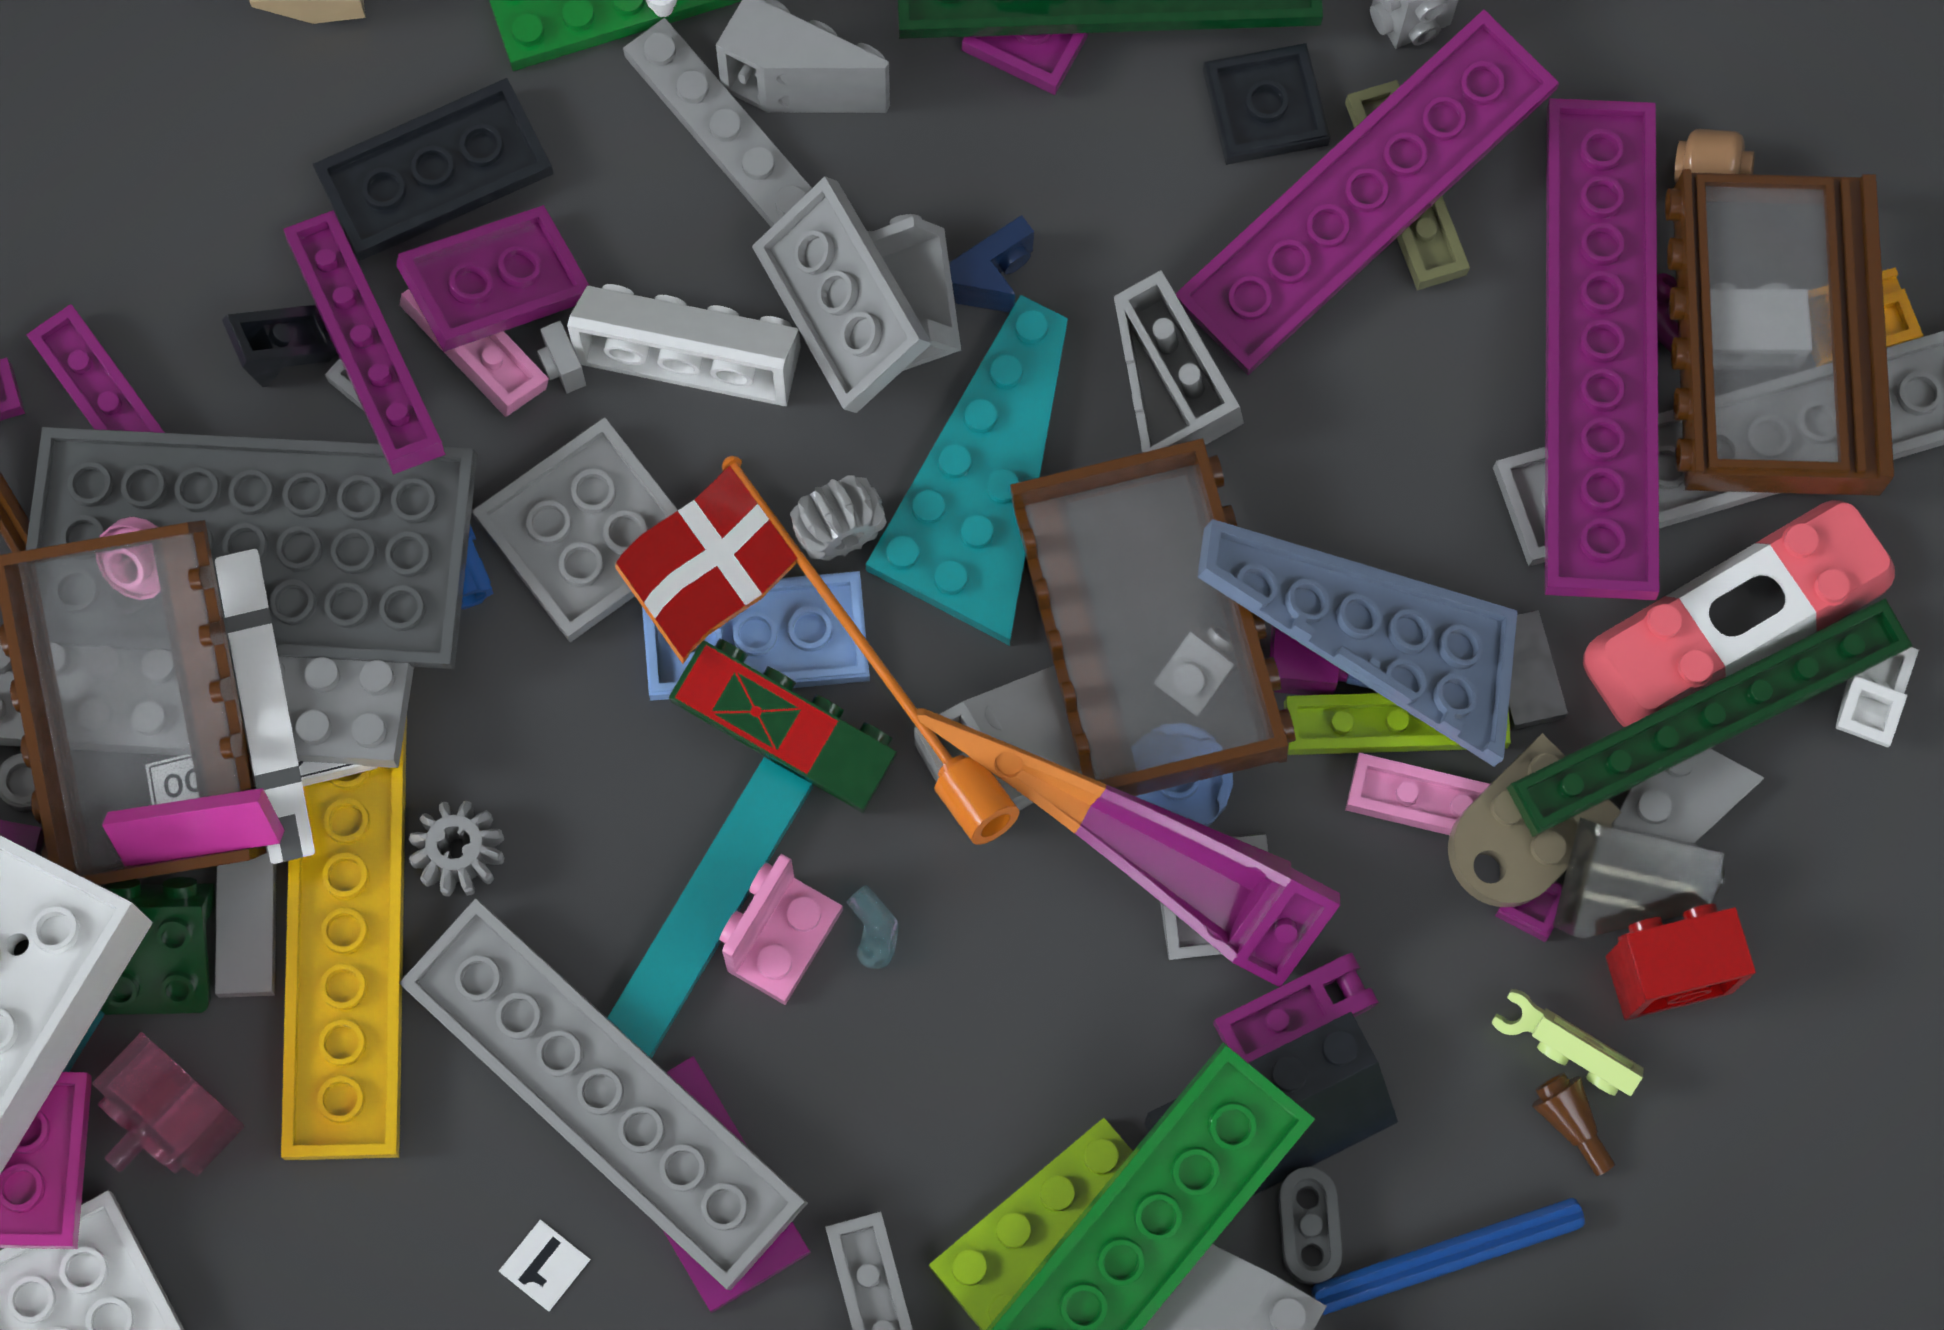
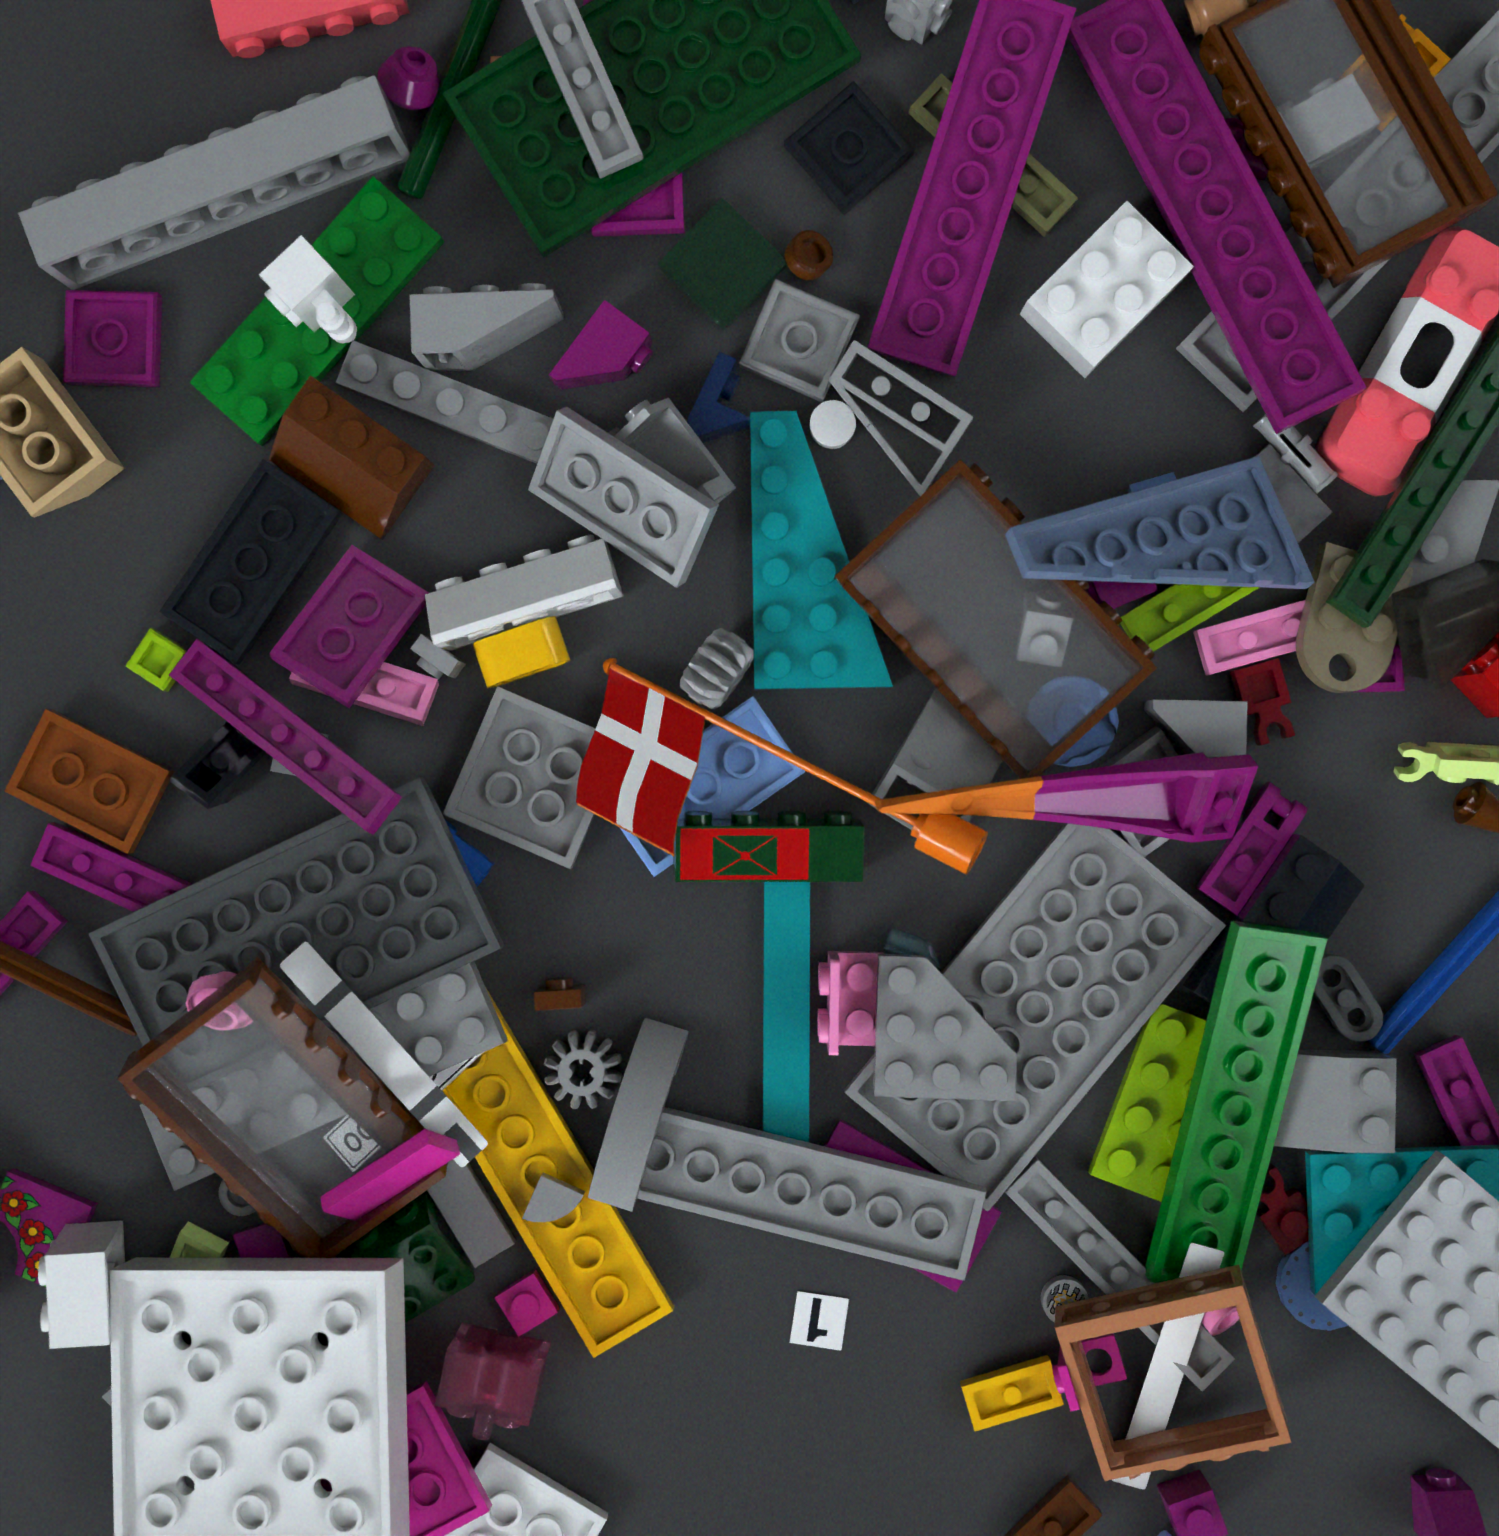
camera: 25 degrees left, 15 degrees up
(138, 288) = (89, 781): none -> dark orange plate
(246, 1065) = (527, 1302): none -> dark pink plate
(277, 209) = (156, 659): none -> lime tile
(341, 959) = (552, 1200): none -> light grey tile
(479, 758) = (559, 994): none -> reddish brown plate
(480, 921) = (637, 1114): none -> light grey slope
(592, 123) = (348, 458): none -> reddish brown slope
(649, 399) = (521, 652): none -> yellow beam
(844, 1015) = (934, 1039): none -> light grey plate
(905, 158) = (603, 351): none -> magenta slope
(967, 1051) = (1067, 982): none -> light grey plate
(1076, 144) = (722, 264): none -> clear green tile
(1097, 353) = (832, 424): none -> white tile
(1108, 252) = (799, 340): none -> light grey tile
(1167, 179) = (809, 255): none -> reddish brown tile
(1312, 843) = (1202, 725): none -> light grey slope
(1394, 857) = (1265, 691): none -> dark red plate
(1448, 368) = (1106, 289): none -> white brick
(1571, 666) = (1317, 474): none -> light grey pin

